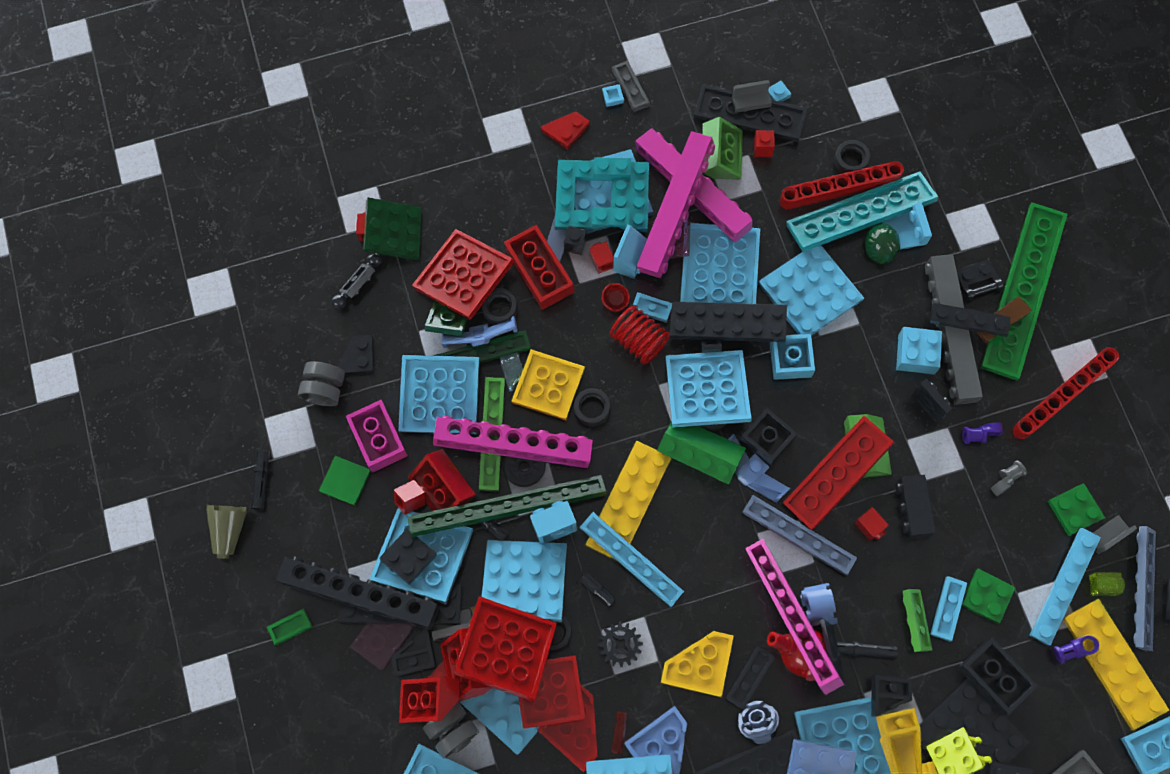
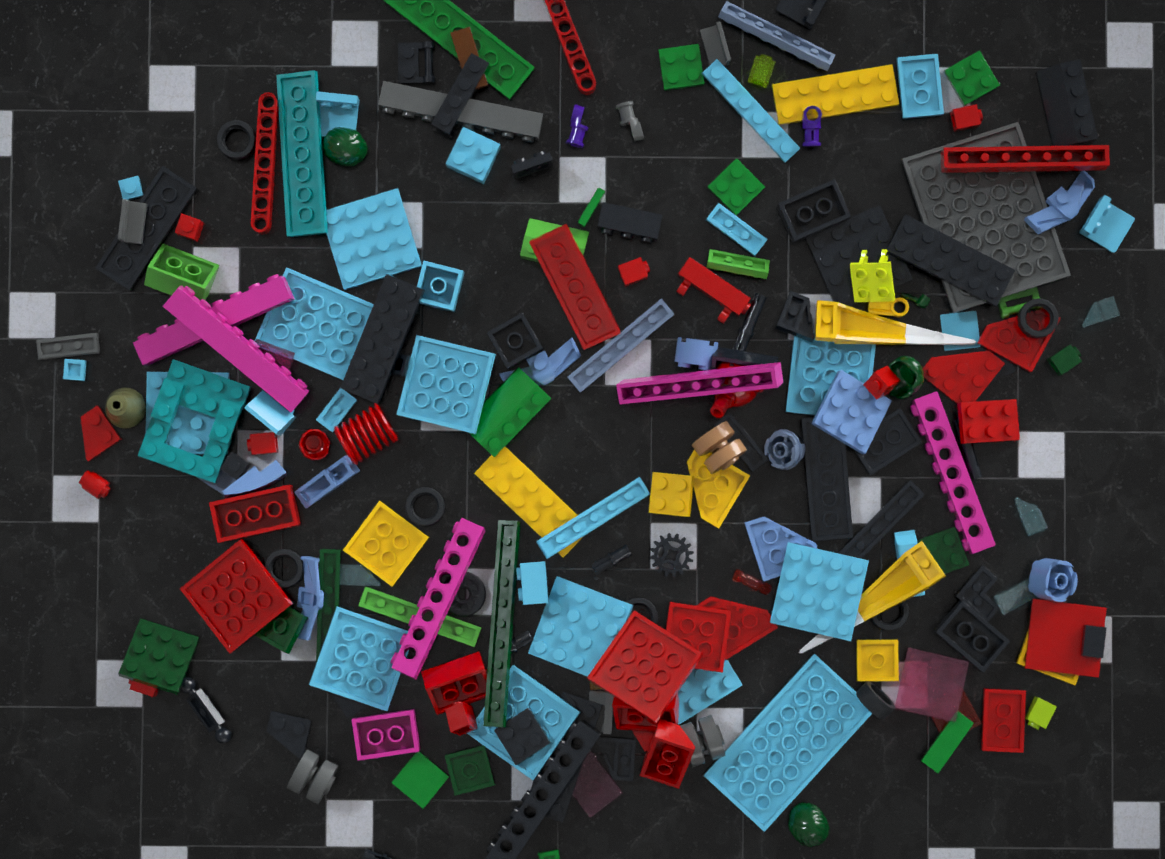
camera: 75 degrees left, 15 degrees up
(364, 521) = (469, 770): none -> dark green plate
(522, 138) = (94, 484): none -> red brick
(569, 259) = (255, 481): none -> medium blue slope
(586, 318) = (327, 481): none -> medium blue slope
(594, 139) = (125, 408): none -> olive cone
(677, 626) = (671, 494): none -> yellow plate
(738, 655) = (723, 453): none -> medium nougat wheel
(886, 604) = (713, 287): none -> red brick
(914, 468) = (591, 207): none -> green tile

